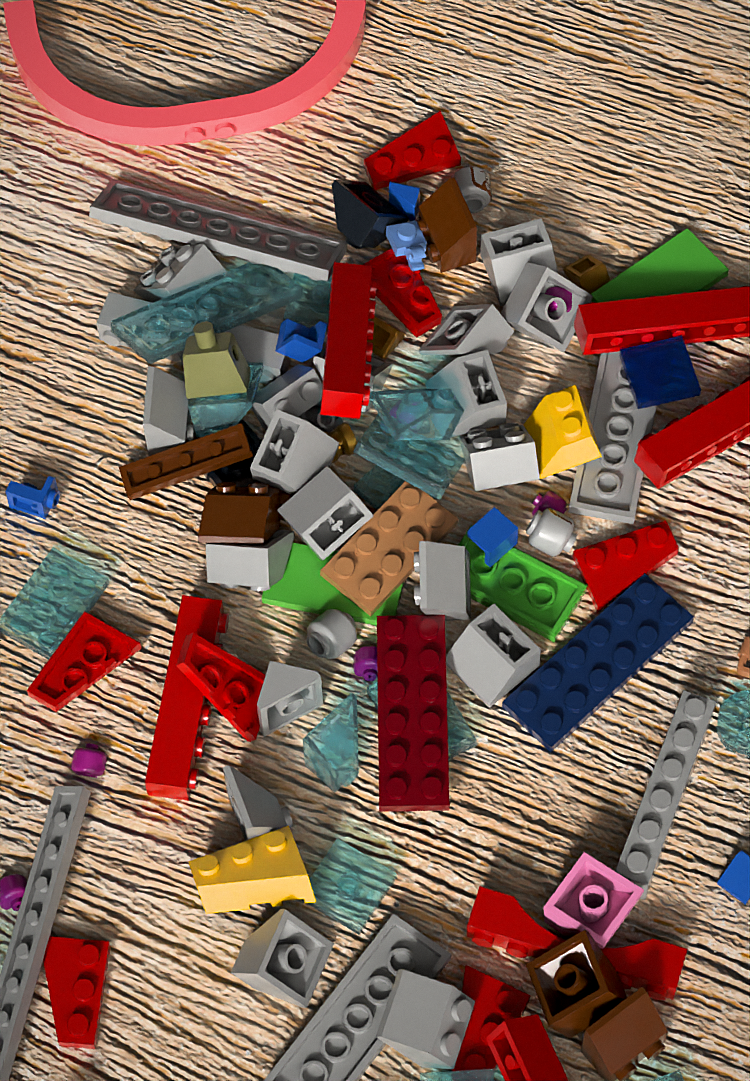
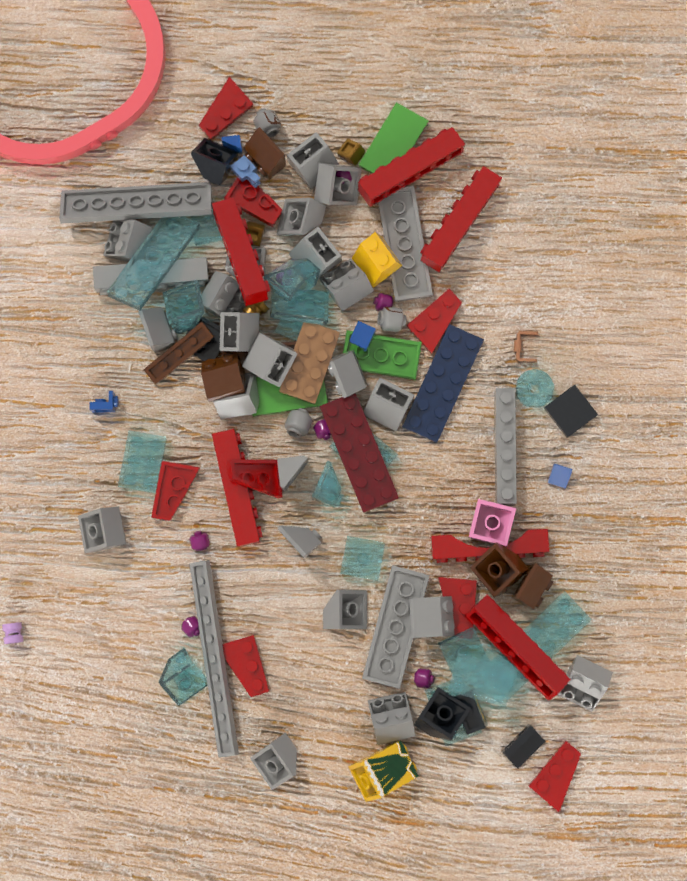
camera: 20 degrees left, 20 degrees up
(214, 364) = (174, 295): torso -> none
(252, 873) = (313, 573): yellow wedge -> none
(300, 341) = (213, 258): blue panel -> none
(659, 372) = (415, 202): clear blue tile -> none

